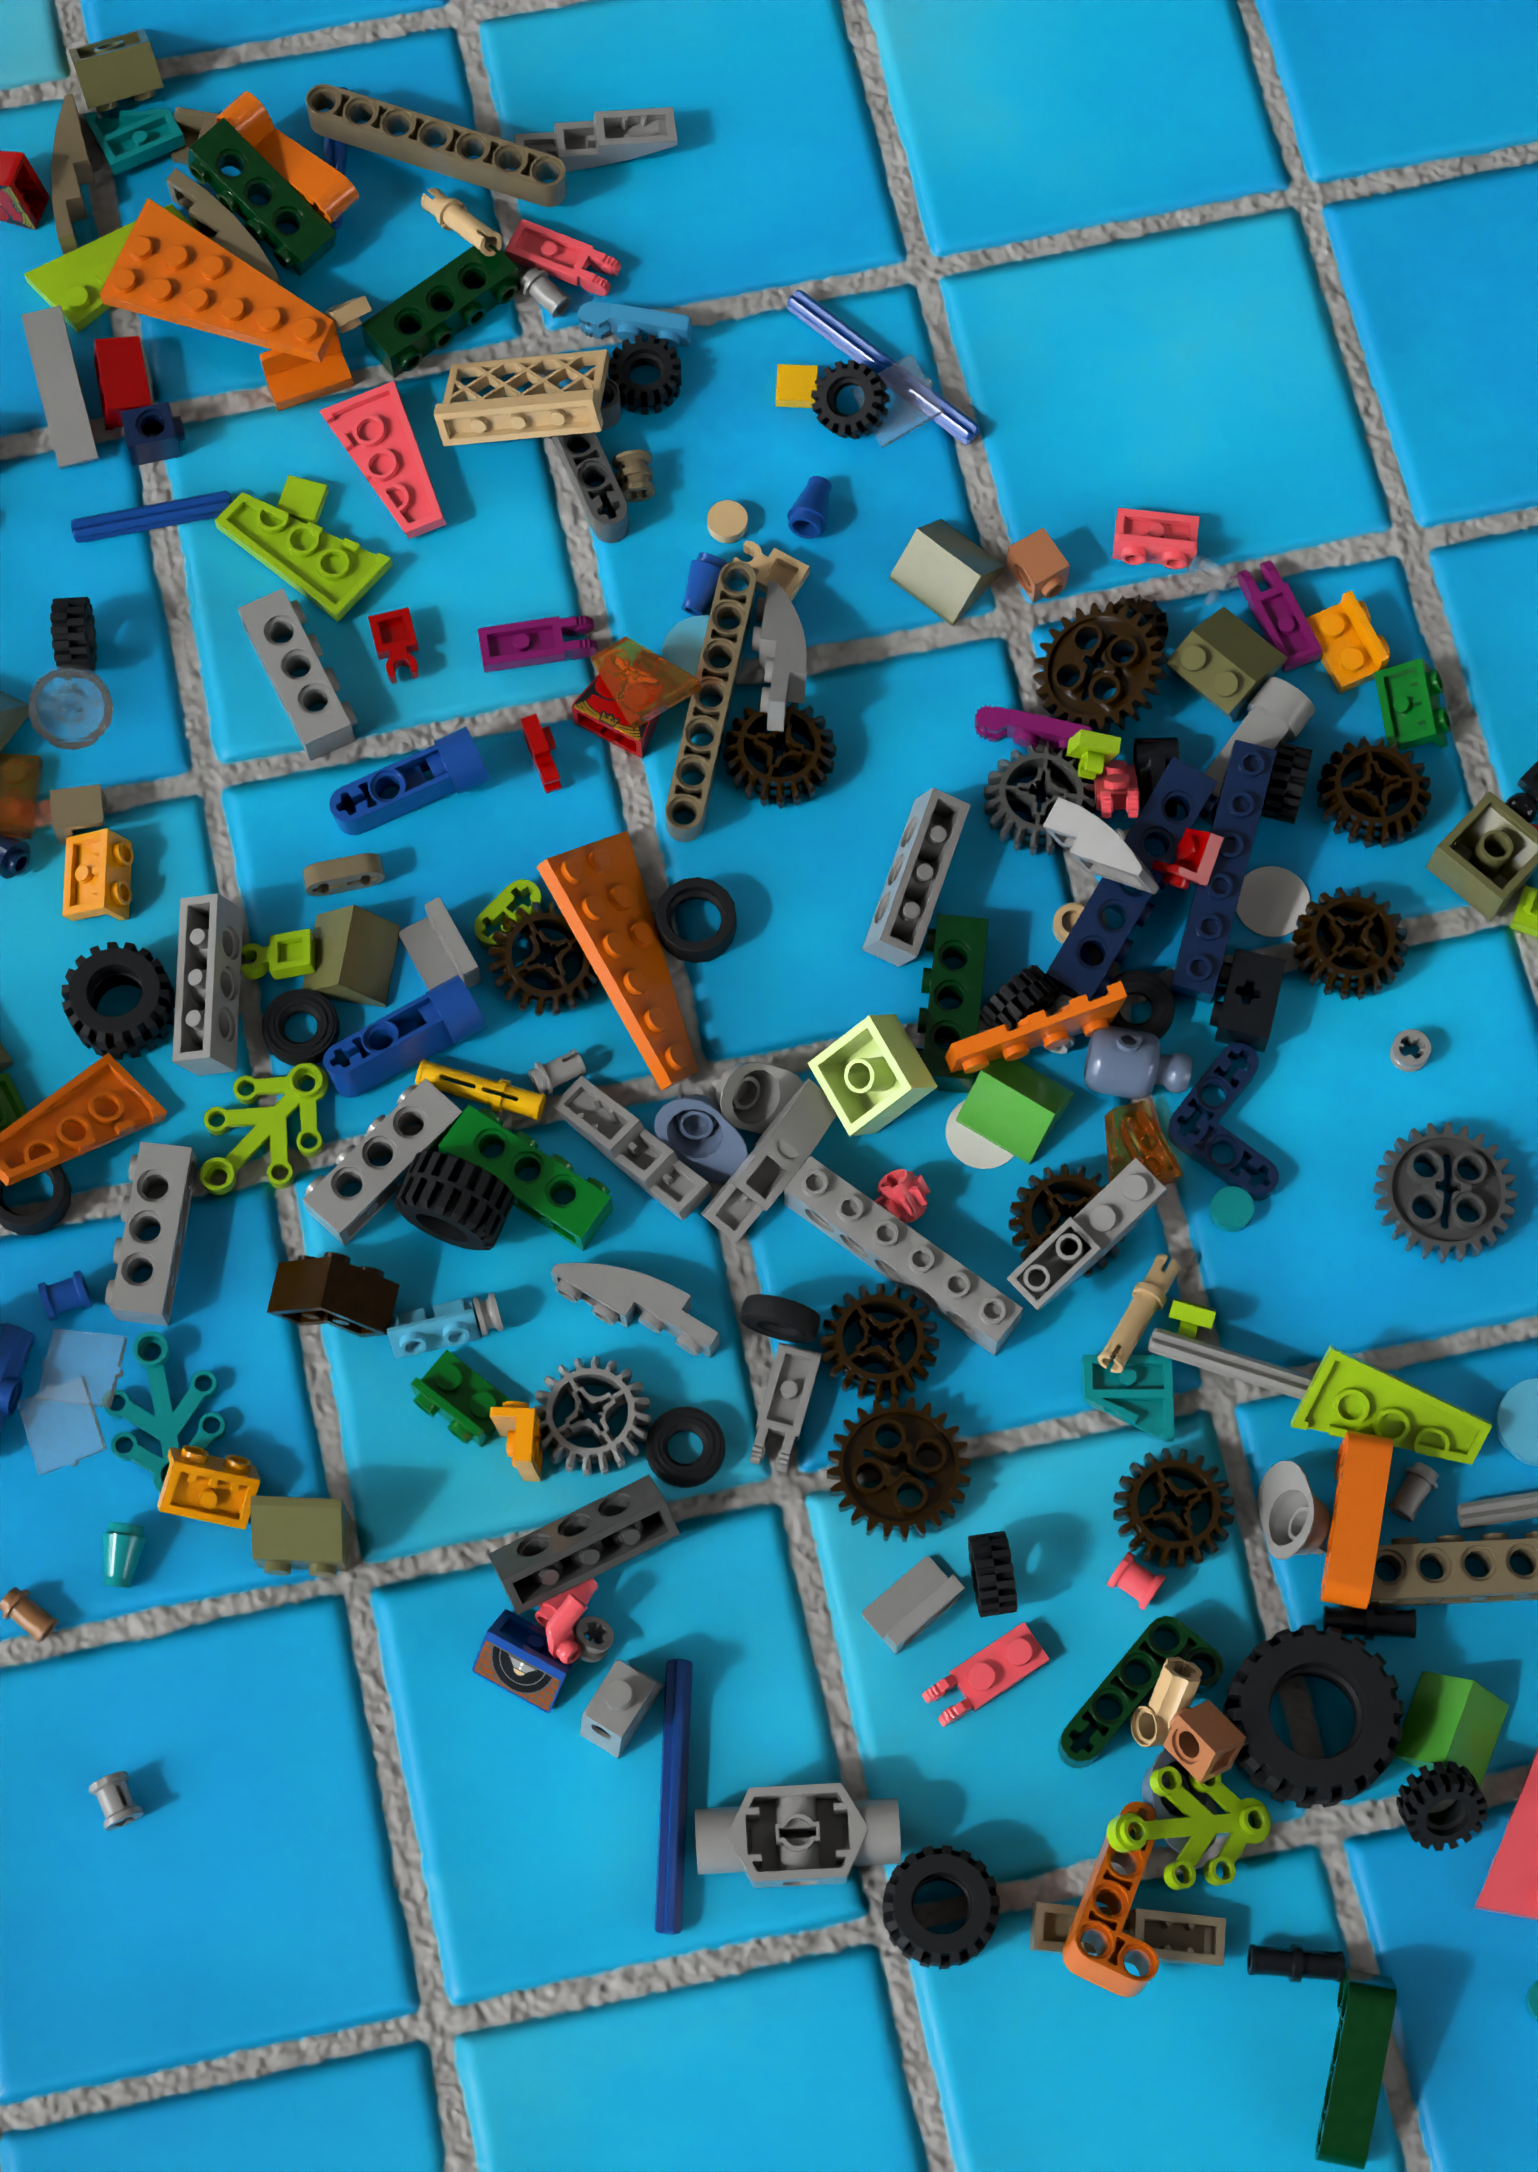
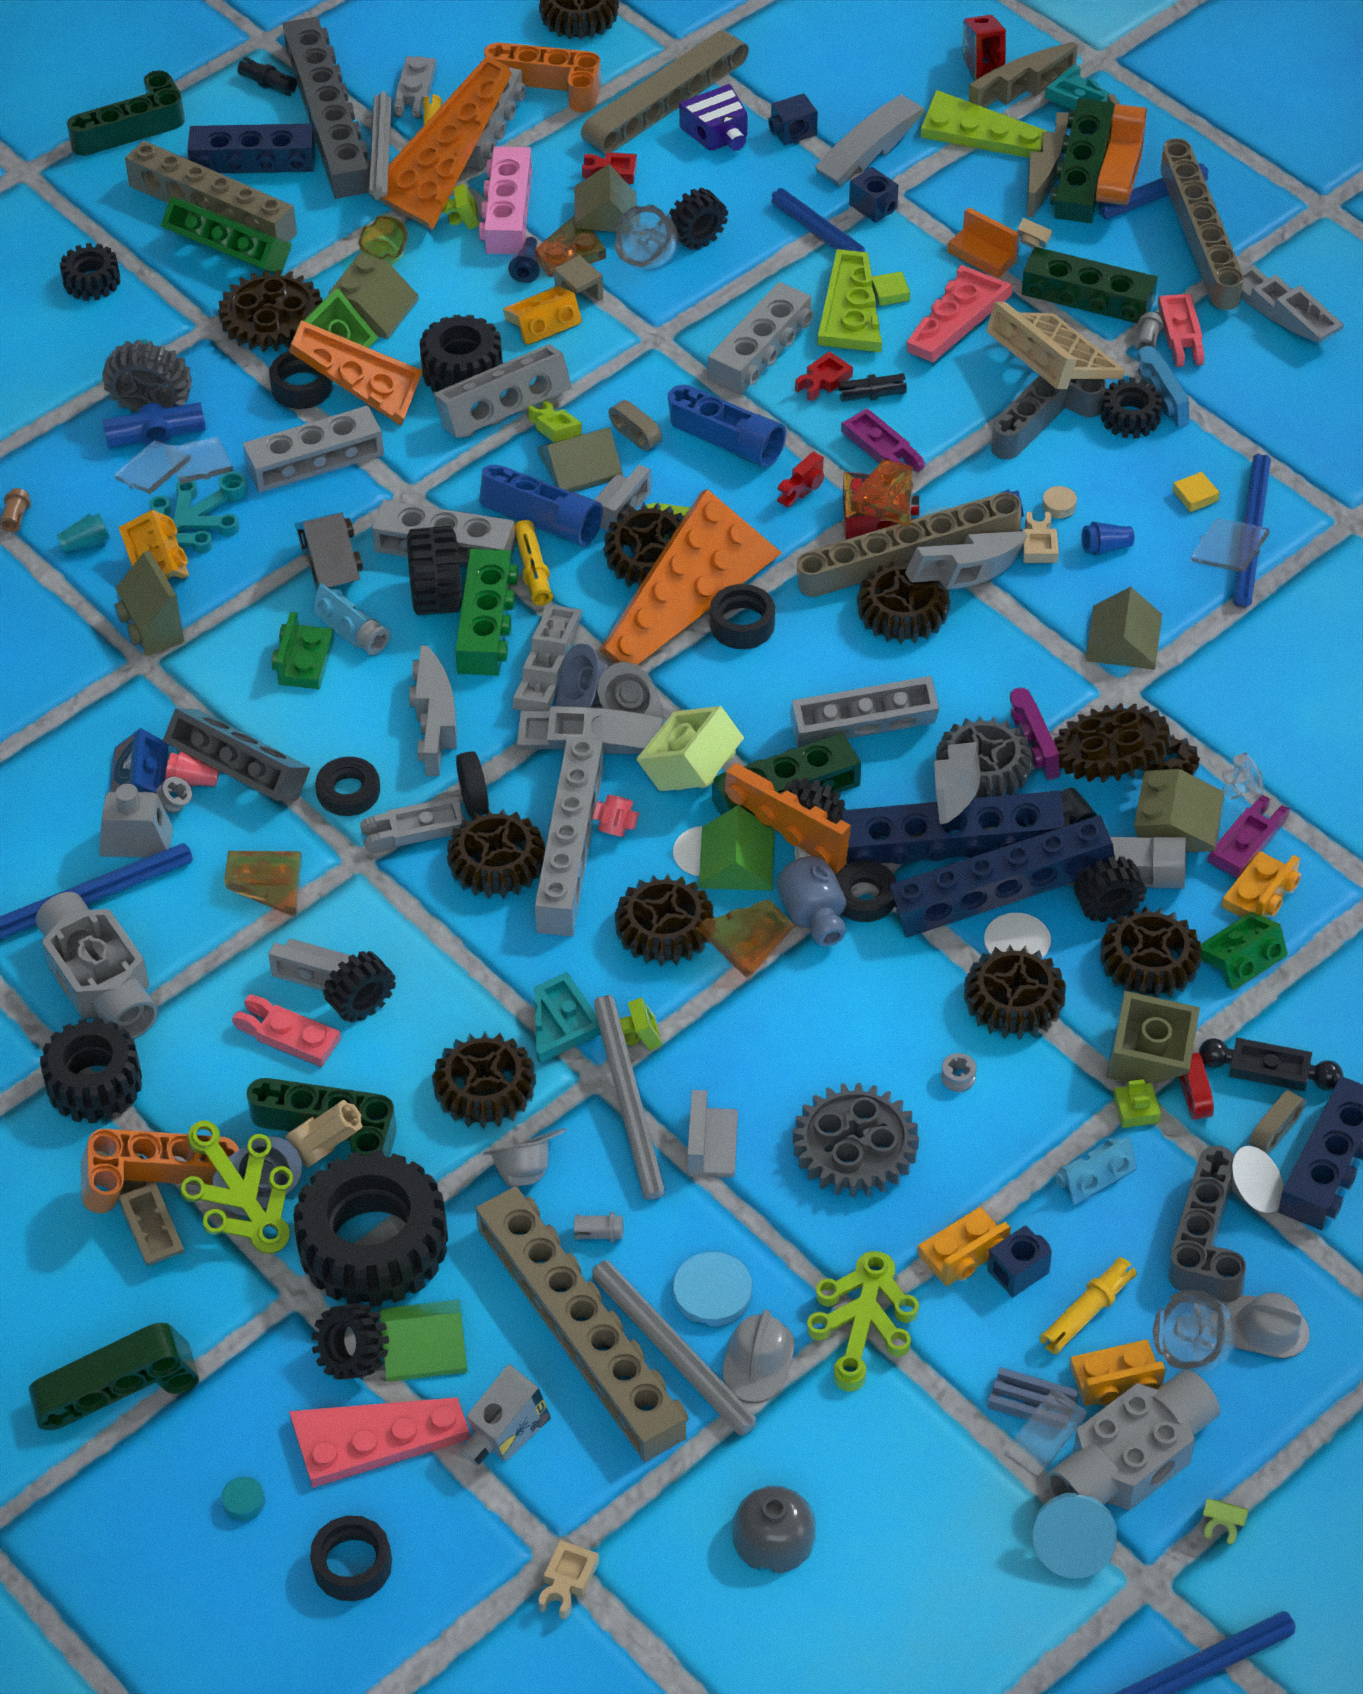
camera: 60 degrees right, 20 degrees down
(65, 1295) = (240, 426): blue bush -> none
(116, 70) = (1117, 61): olive slope -> none
(120, 377) = (902, 158): red hinge -> none
(196, 283) = (994, 164): orange wing -> none
(267, 1123) = (465, 477): lime plant -> none
(297, 1002) = (513, 441): black tyre -> none
(443, 604) = (872, 387): none -> black pin
(454, 216) = (1157, 258): tan pin -> none
(522, 1431) = (288, 686): light orange bracket -> none
(556, 1072) = (574, 595): light grey pin -> none
(560, 1630) = (163, 765): coral arm -> none
(604, 1405) = (332, 713): light grey gear -> none
(634, 474) = (1049, 435): dark tan bush -> none
(769, 1596) = (266, 877): none -> clear orange wing
(833, 383) = (1211, 502): black tyre -> none
(880, 1504) = (380, 908): dark brown gear -> none
(1038, 565) = (1168, 677): nougat brick -> none
(1087, 1236) = (641, 916): light grey slope -> none
(1093, 751) = (1034, 755): lime tile -> none
(1117, 789) = (1011, 782): coral hinge -> none
(1136, 1581) = (413, 1083): coral bush -> none
(1147, 1299) = (621, 989): tan pin -> none
(1155, 538) = (1248, 732): coral bracket -> none
(1193, 860) = (994, 838): red bracket -> none
(1203, 1740) = (302, 1153): nougat brick -> none
(1211, 1133) = (801, 976): dark blue beam -> none
(1232, 1209) = (748, 1018): teal tile -> none
(1251, 976) = (920, 950): black brick -> none
(1295, 1963) = (174, 1309): black pin -> none
(1356, 1518) = (544, 1175): orange beam -> none
(1361, 1326) = (711, 1139): none -> light grey panel
(1371, 1401) = (645, 1163): lime wing -> none
(1371, 1621) = (474, 1243): black pin -> none

